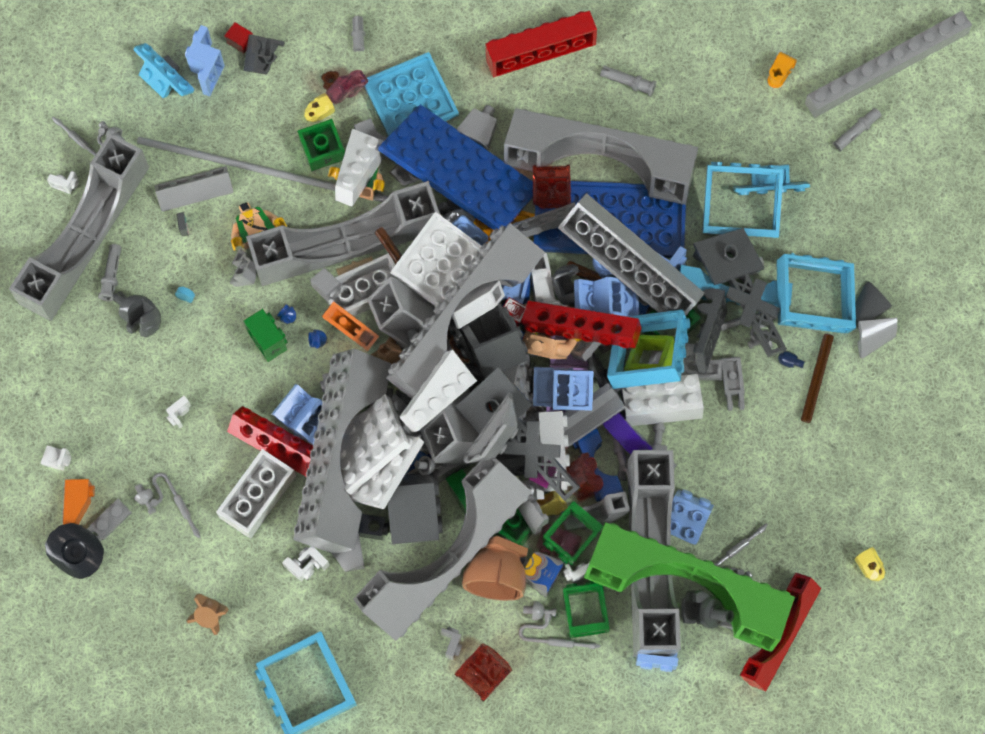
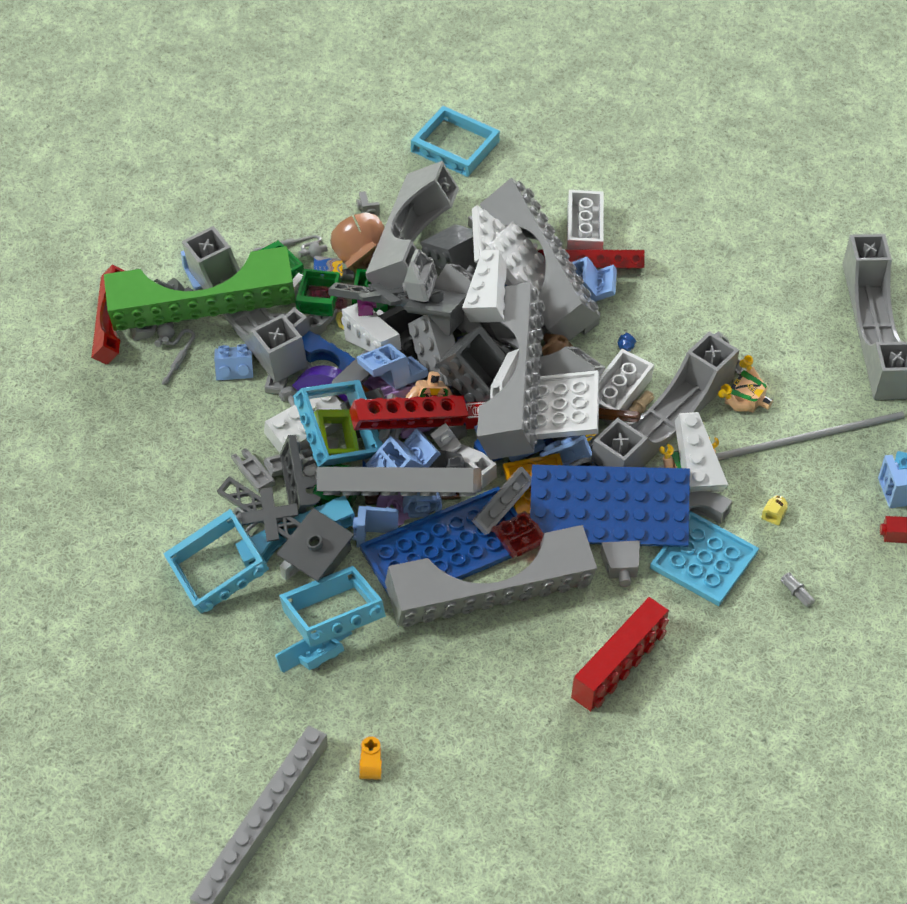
camera: 145 degrees right, 20 degrees down
(56, 458) = (752, 187): white bracket -> none
(74, 550) = (684, 137): black hat -> none
(77, 499) = (713, 167): orange slope -> none
(109, 280) = (824, 305): light grey pin -> none
(110, 520) = (679, 168): light grey hinge -> none
(138, 312) = (781, 292): dark grey piece -> none
(145, 496) = (665, 191): light grey piece -> none
(180, 408) = (690, 245): white bracket -> none
(182, 224) = (805, 367): dark grey tile -> none
(185, 294) = (757, 322): medium azure tile -> none
(193, 188) = (824, 400): light grey panel -> none
(208, 613) = (559, 147): medium nougat piece -> none
(260, 54) = (865, 527): dark grey slope -> none
(265, 334) = (667, 316): green brick -> none
(287, 314) = (665, 347): blue plate -> none
(321, 144) = (747, 474): green brick -> none
(326, 77) = (787, 534): reddish brown plate -> none
(326, 284) = (646, 358): light grey brick -> none
(347, 86) = (763, 532): clear pink brick -> none
(350, 326) = (605, 348): orange slope -> none
(484, 671) = (328, 202): clear red slope -> none
(533, 515) = (352, 277): light grey slope -> none
(583, 473) = (335, 333): clear red slope -> none
(637, 83) = (506, 675): light grey pin -> none
(790, 360) = (211, 511): dark blue cylinder -> none
(817, 378) = (177, 504): reddish brown axle -> none
(862, 125) = (255, 749): light grey pin -> none
(870, 303) = (161, 586): dark grey slope -> none
(871, 564) = (58, 395): light yellow rock -> none
(875, 334) = (144, 562): light grey slope -> none

